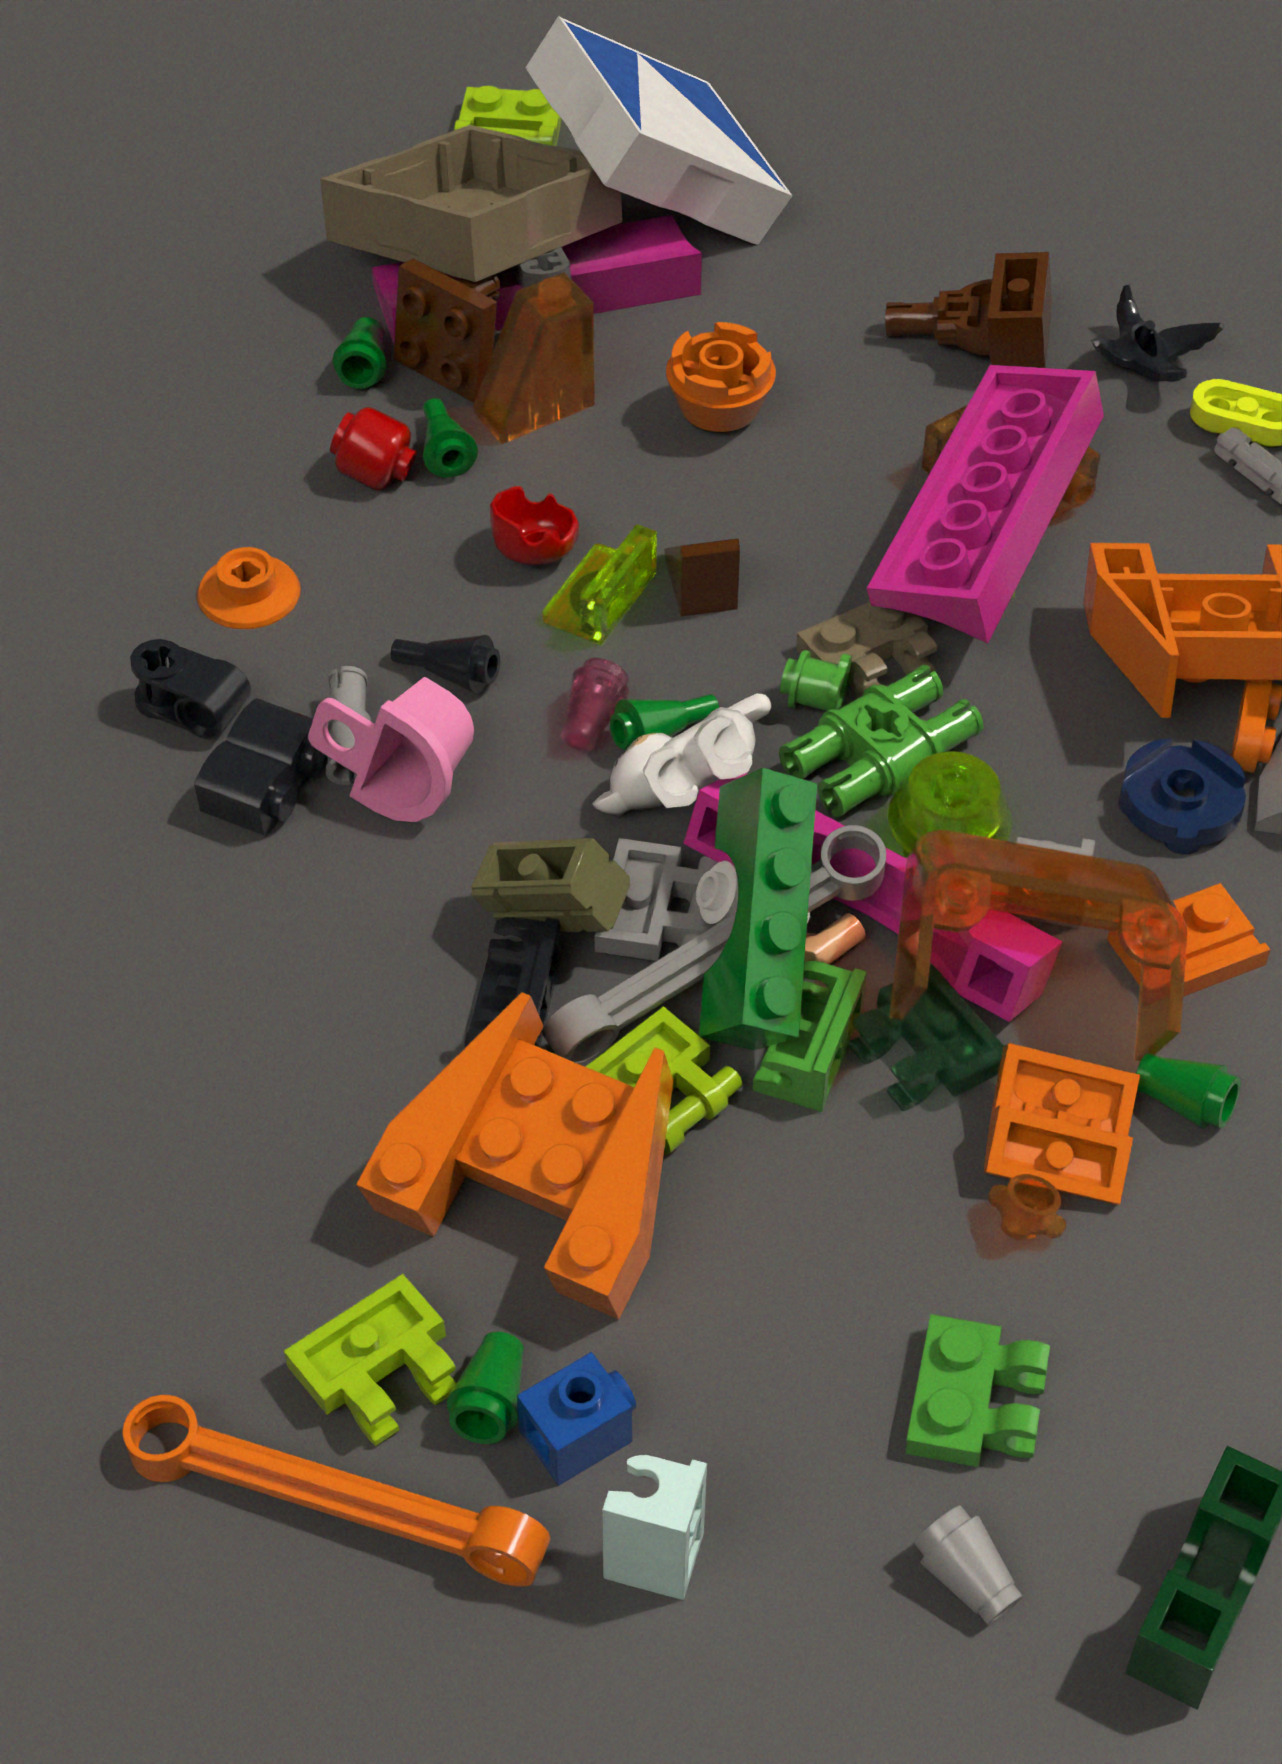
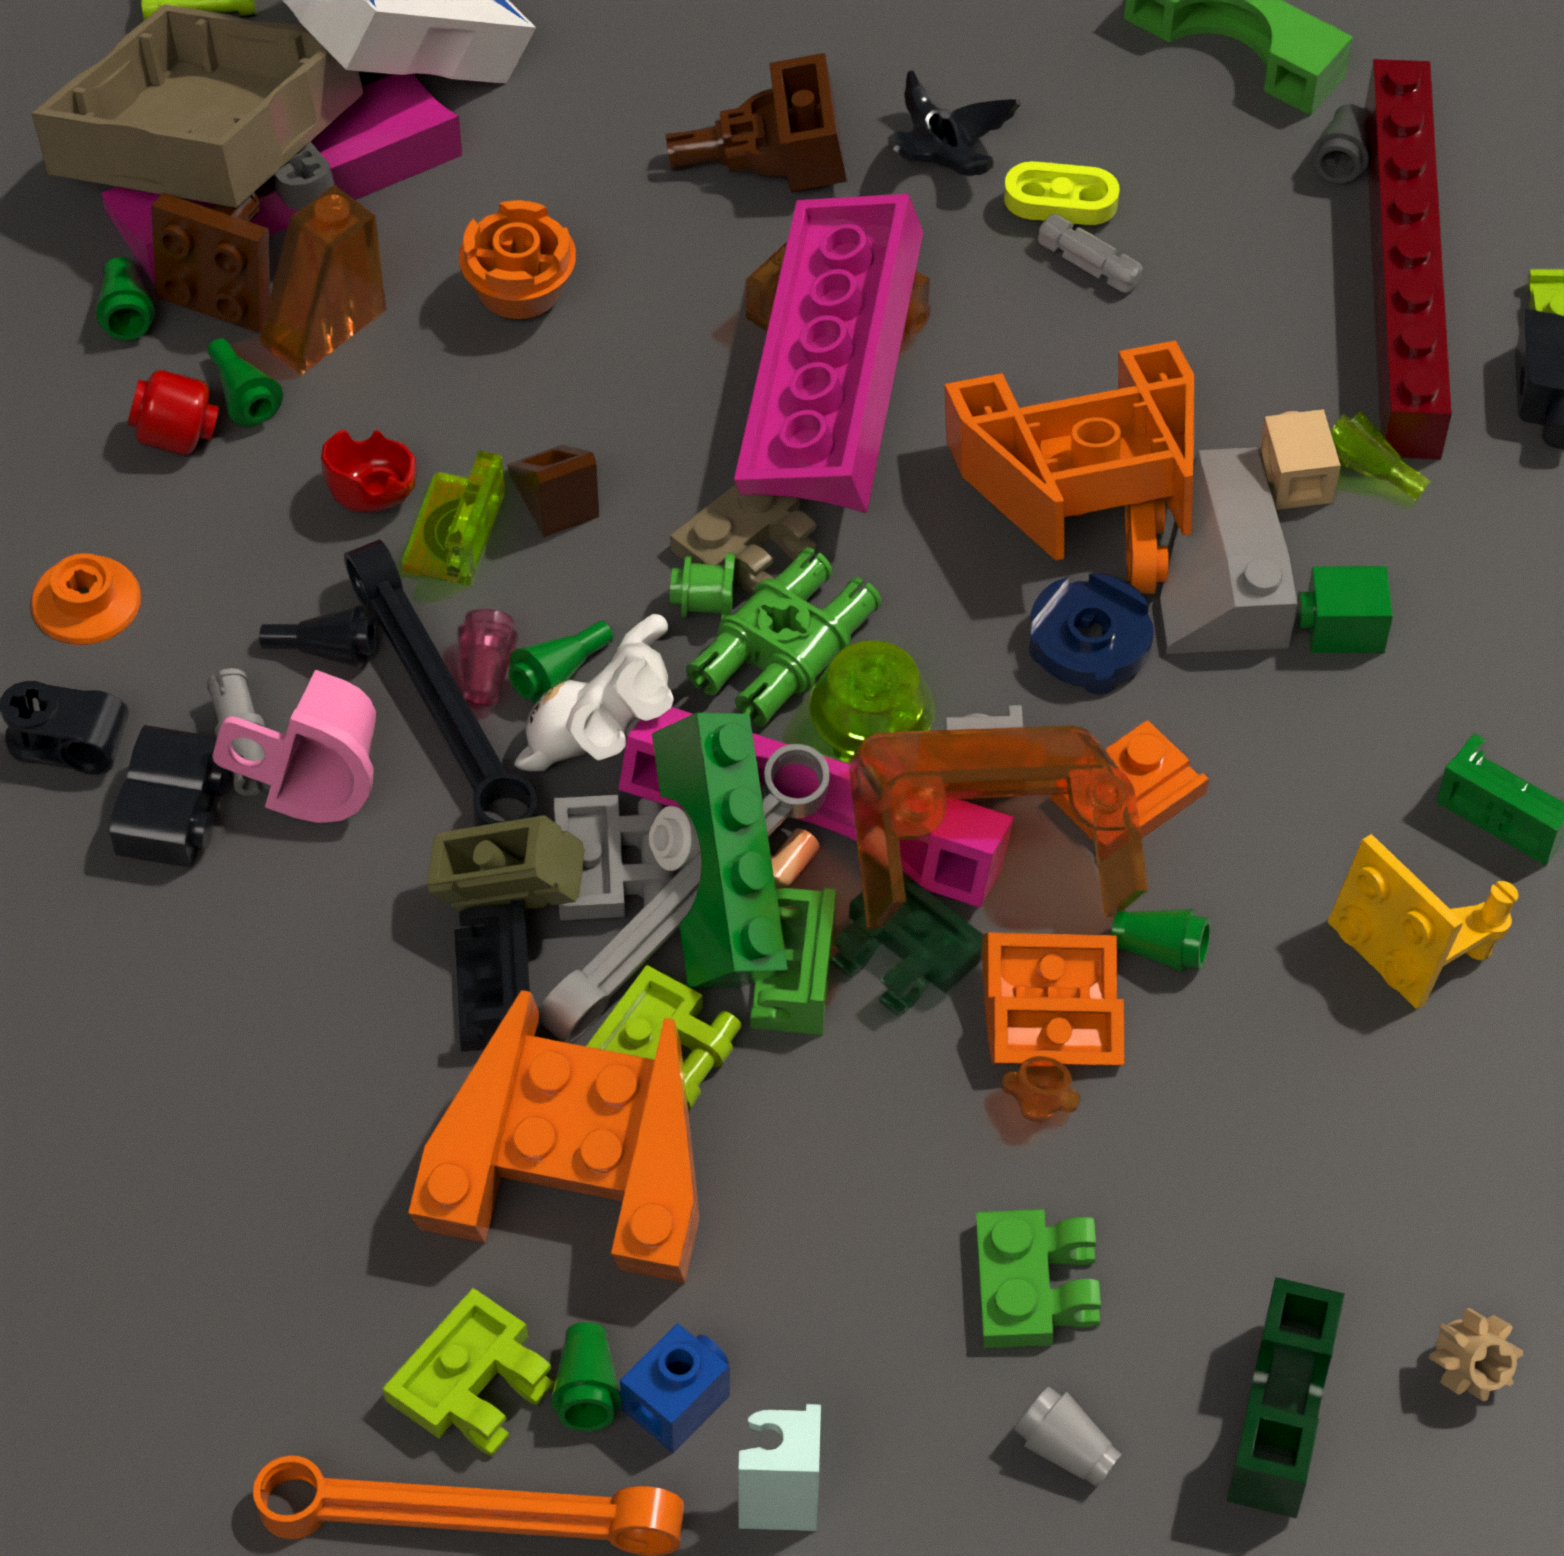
camera: 15 degrees left, 5 degrees up
(514, 632) = (381, 589): none -> black piece

